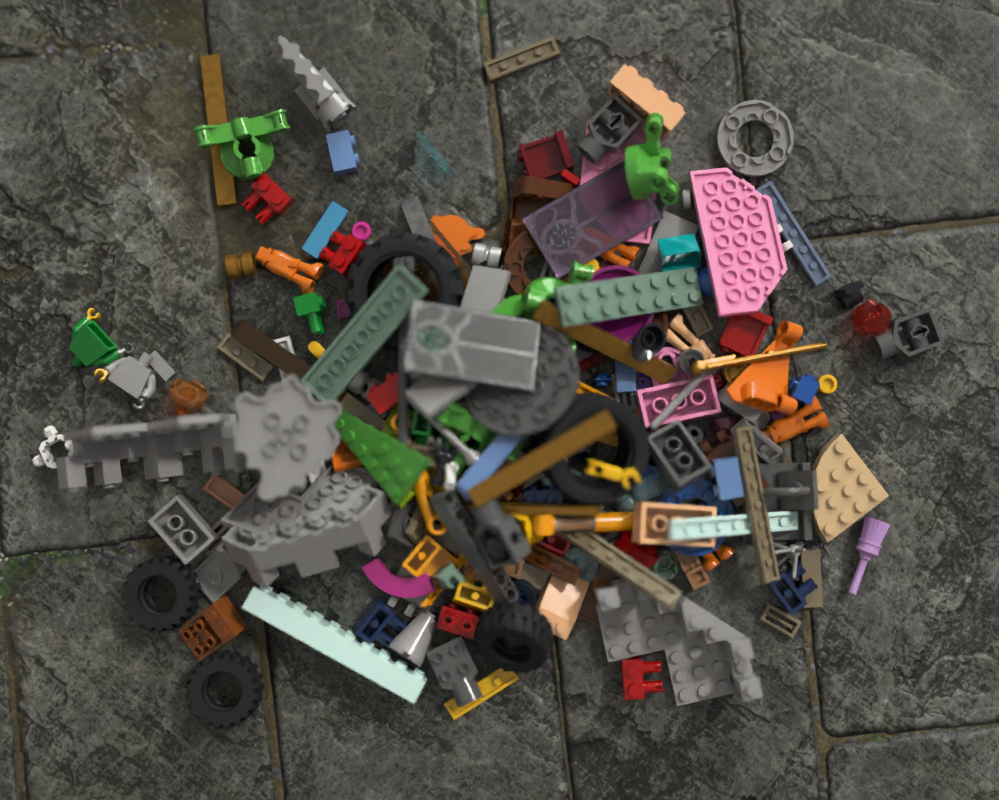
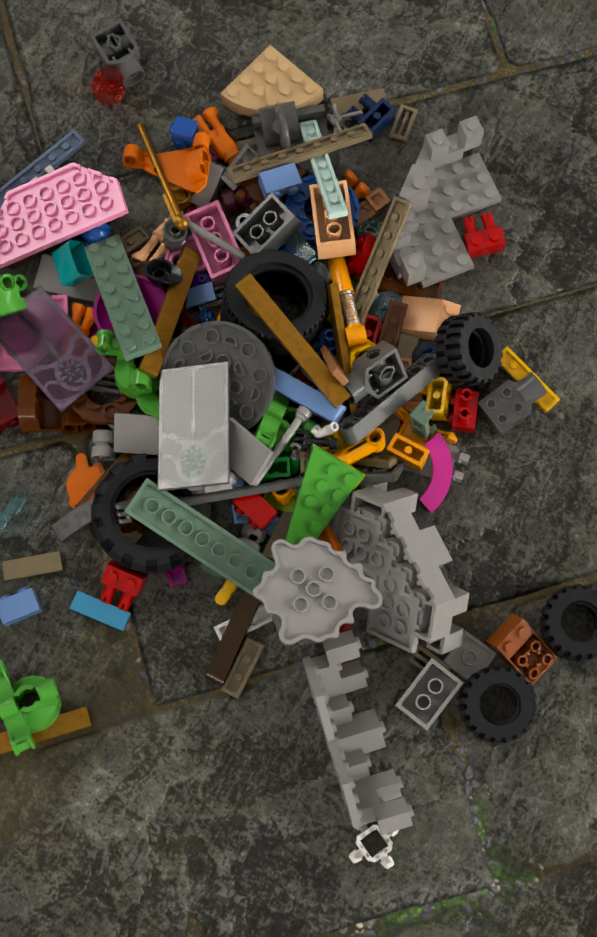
camera: 100 degrees left, 10 degrees down
(92, 344) = (257, 827): green torso -> none
(132, 376) = (283, 778): light grey torso -> none
(161, 366) = (266, 755): light grey window -> none
(187, 394) = (290, 717): clear orange tile -> none
(223, 491) = (383, 664): nougat tile -> none
(241, 265) = (149, 687): pearl gold wheel -> none
(276, 199) = (71, 670): red brick -> none
(289, 267) = (144, 640): orange piece -> none
(311, 307) = (182, 606): green brick -> none
(336, 642) = (509, 521): light aqua brick -> none
(361, 231) = (94, 574): dark pink tile -> none
(374, 619) = (481, 489): dark blue brick -> none
(380, 172) = (32, 566): none -> dark tan tile
(415, 638) = (490, 447): light grey cone -> none
(513, 496) = (334, 365): none -> medium nougat tile
(568, 177) = (13, 380): red tile -> none
(612, 473) = (294, 276): yellow piece -> none
(686, 199) = (19, 268): light grey tile -> none
(744, 333) = (141, 196): red panel -> none
(827, 384) = (171, 115): yellow tile -> none
(850, 294) = (87, 108): black plate -> none
(868, 547) = (319, 57): lavender piece -> none

